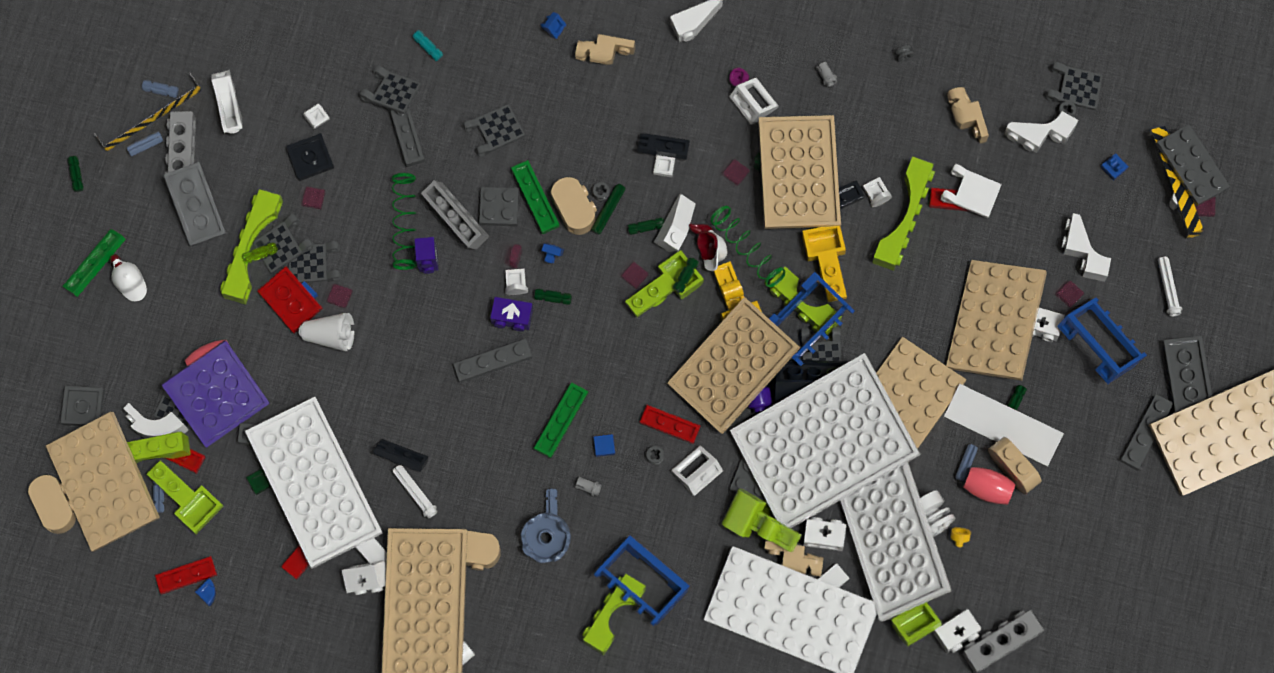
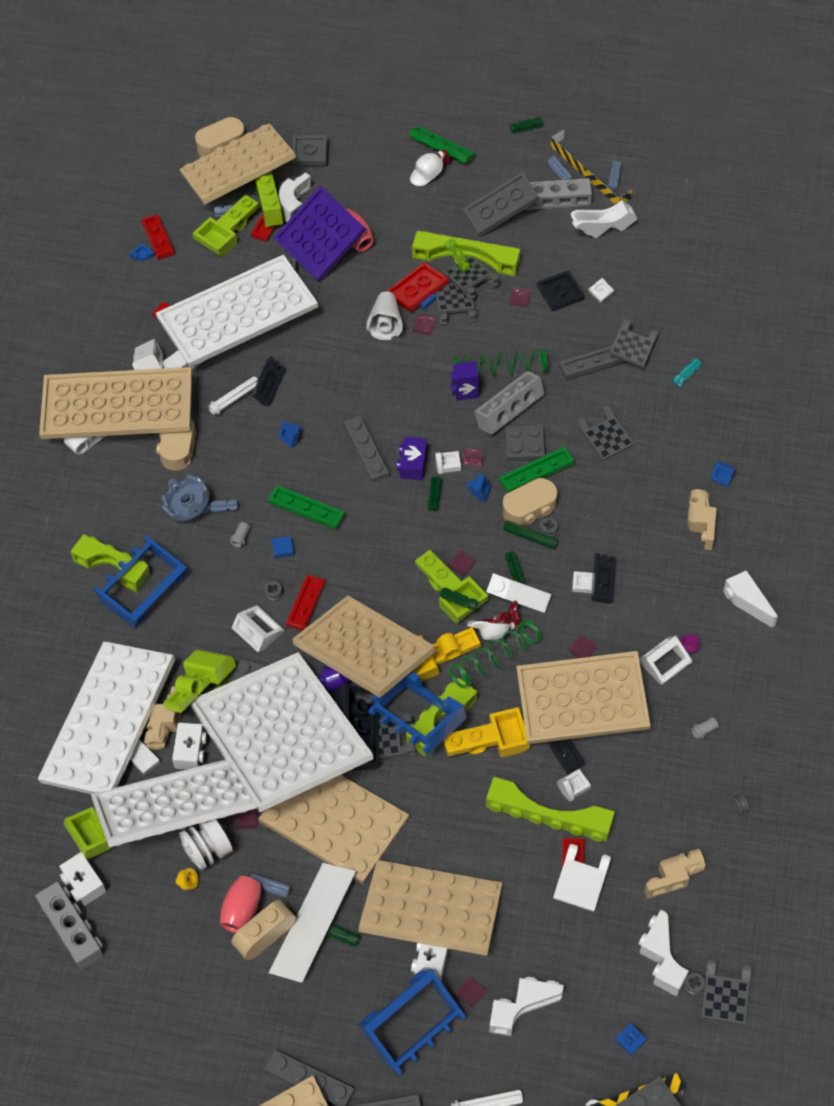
camera: 85 degrees right, 15 degrees down
(470, 434) = (289, 433): none -> blue tile

